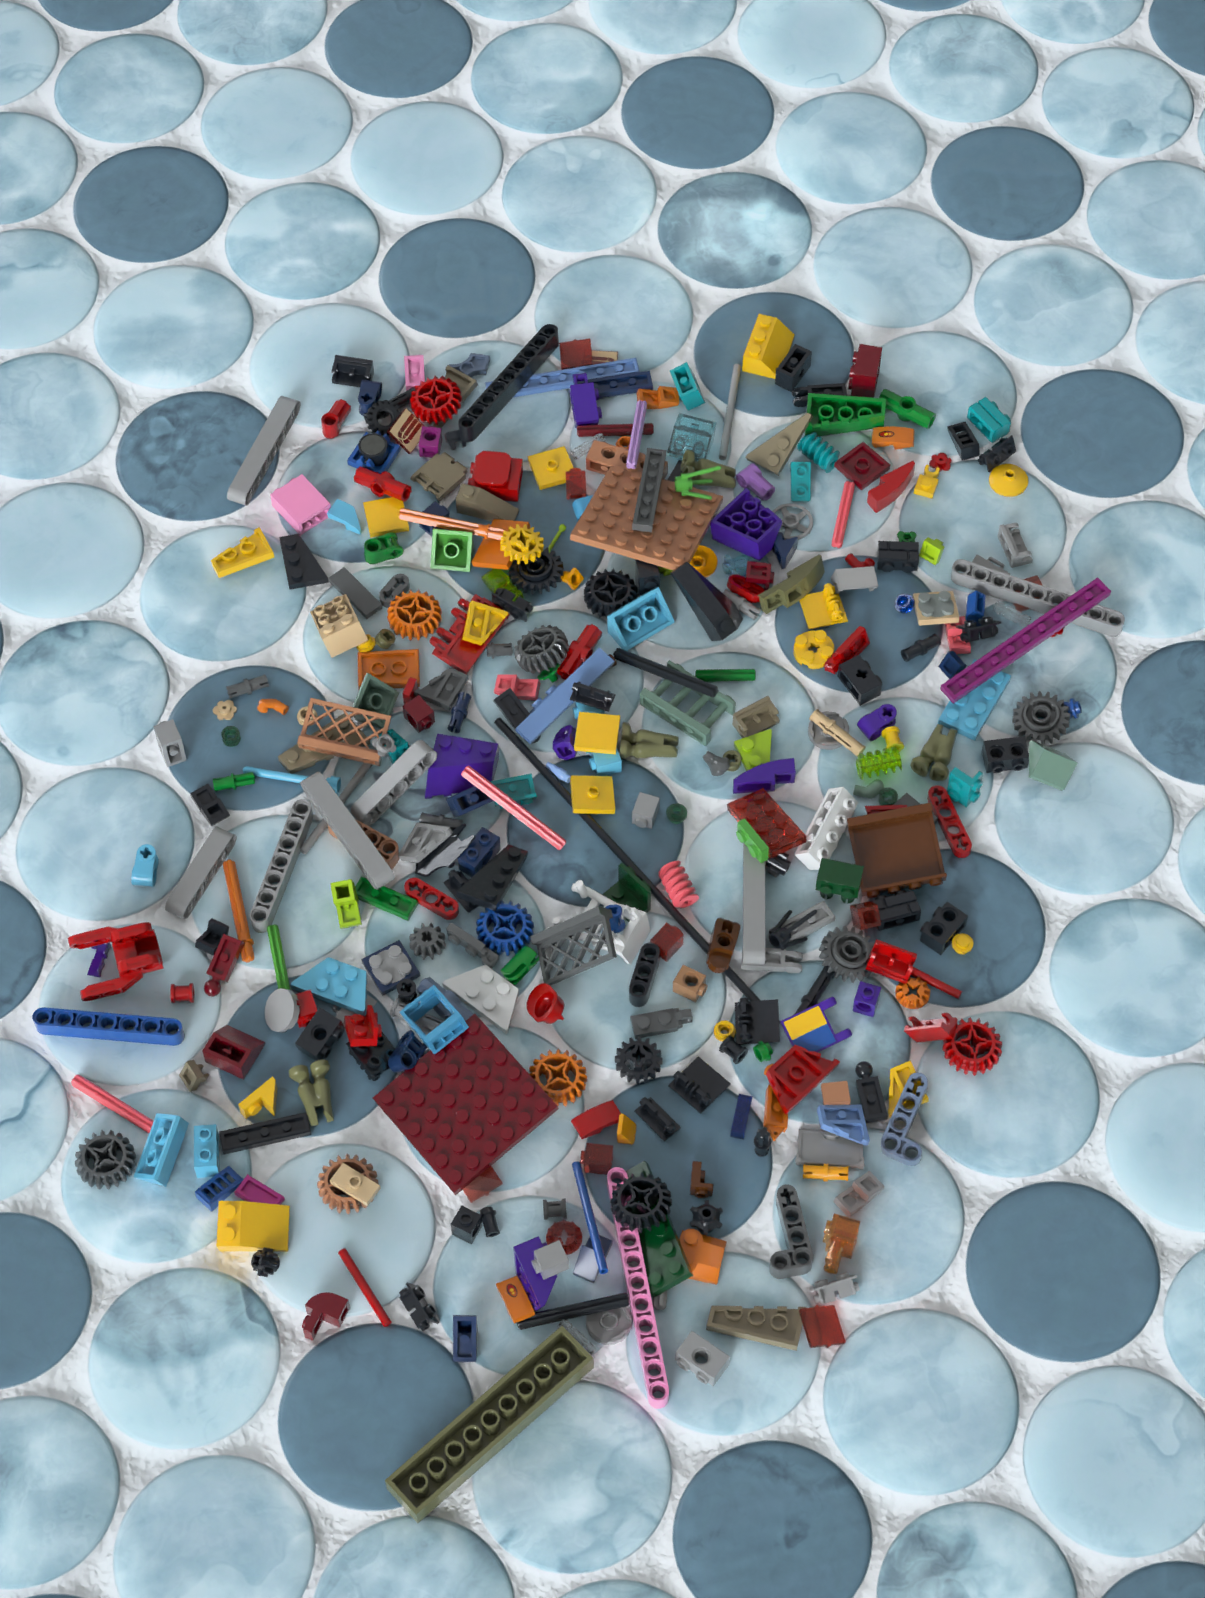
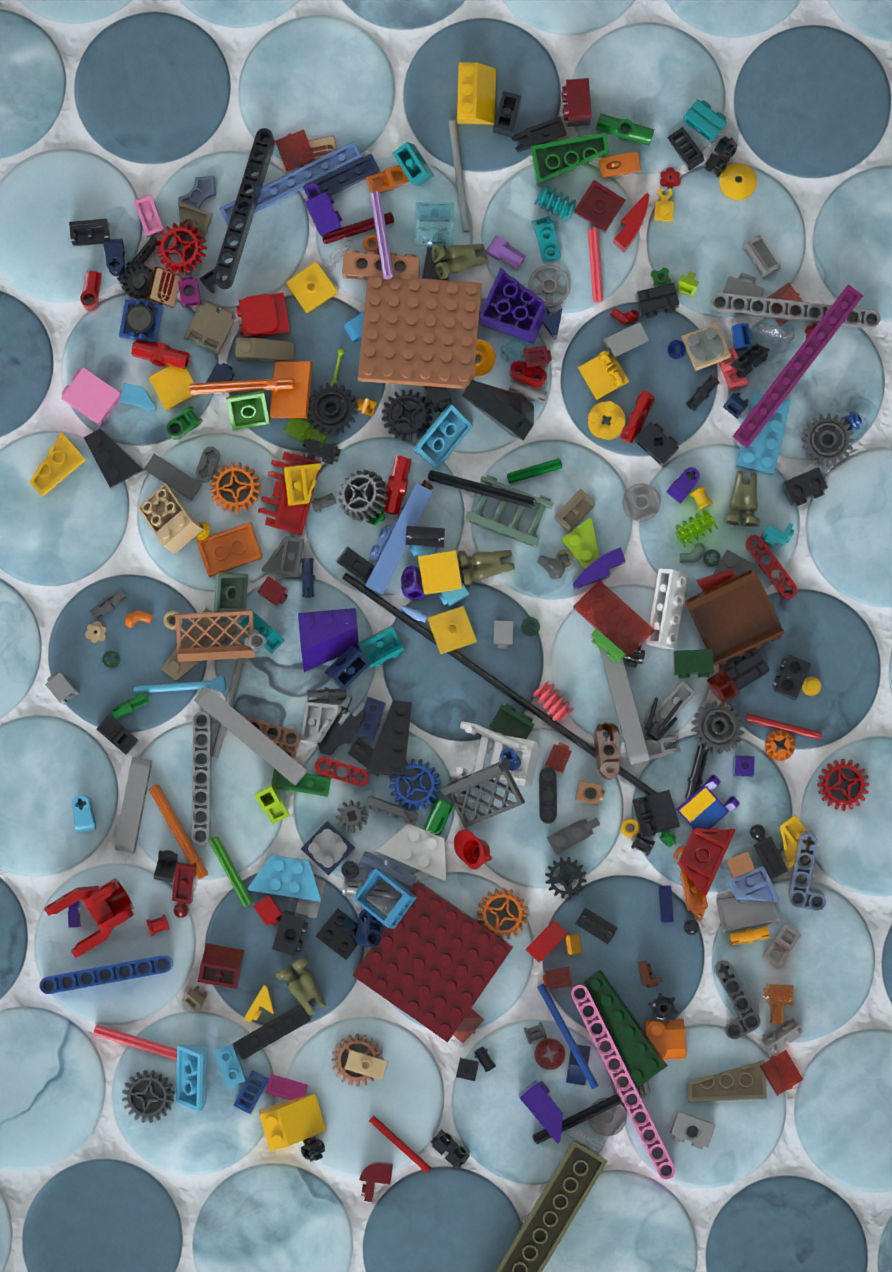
camera: 10 degrees left, 25 degrees up
(263, 450) = (36, 345): light grey beam -> none
(282, 1010) = (250, 920): light grey tile -> none
(363, 1029) = (324, 918): red bracket -> none
(385, 639) = (215, 525): olive bush -> none
(393, 783) = (275, 673): light grey beam -> none
(408, 692) = (257, 567): red tile -> none
(465, 1338) = (497, 1170): dark blue slope -> none
(513, 807) = (388, 669): coral axle -> none
(515, 1299) = (526, 1122): orange slope -> none
(519, 544) = (320, 389): yellow gear -> none
(523, 688) = (351, 536): coral slope -> none
(550, 1260) = (554, 1105): light grey brick -> none
(575, 483) = (340, 304): clear red brick -> none
(636, 1213) = (602, 1024): black gear -> none
(649, 490) = (414, 304): dark grey plate -> none
(684, 482) = (444, 285): bright green plant -> none
(699, 1084) = (622, 884): black hinge -> none
(778, 449) = (516, 213): dark tan wing -> none
(795, 587) = (576, 355): olive slope -> none
(831, 728) = (646, 505): tan pin -> none
(891, 961) = (756, 729): red hinge -> none
(932, 1029) = (806, 779): red hinge -> none
(1049, 765) = (847, 487): sand green slope -> none

